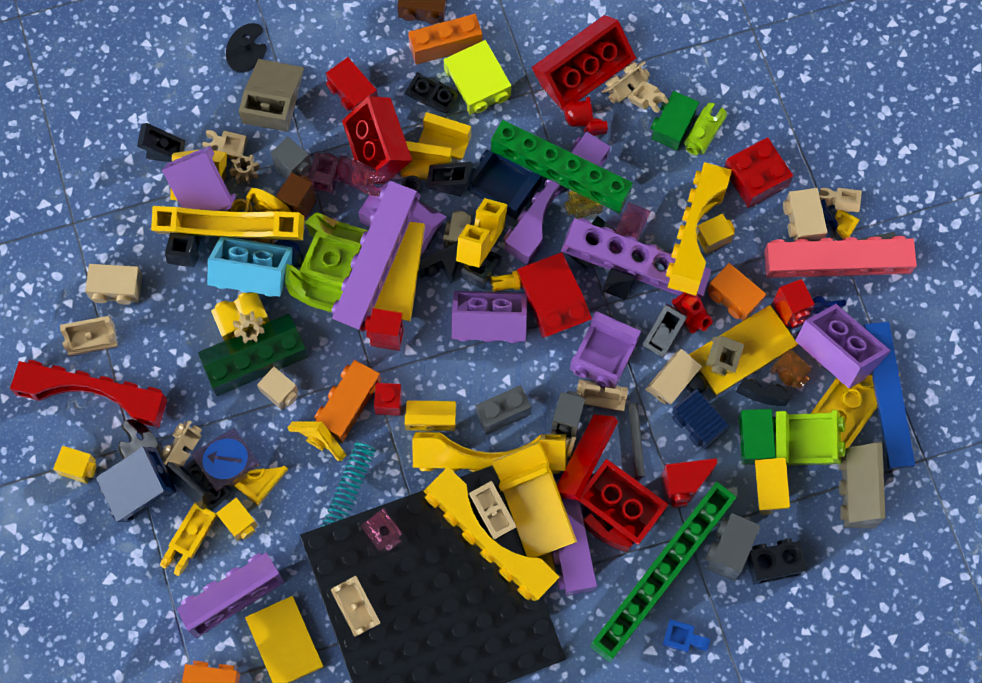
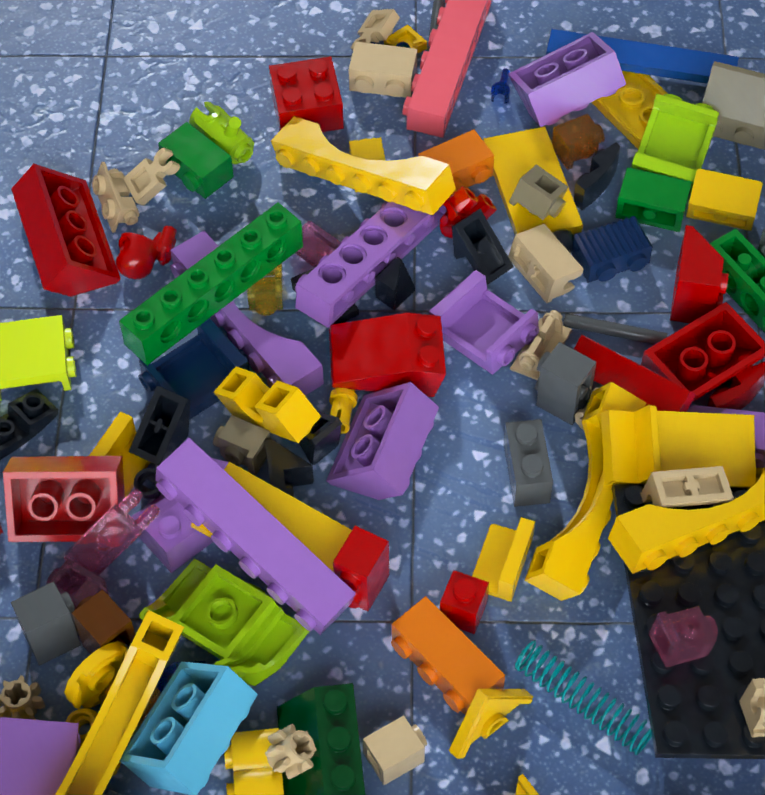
camera: 70 degrees left, 15 degrees down
(446, 133) = (86, 420): yellow panel -> none
(793, 304) = (498, 104): red brick -> none

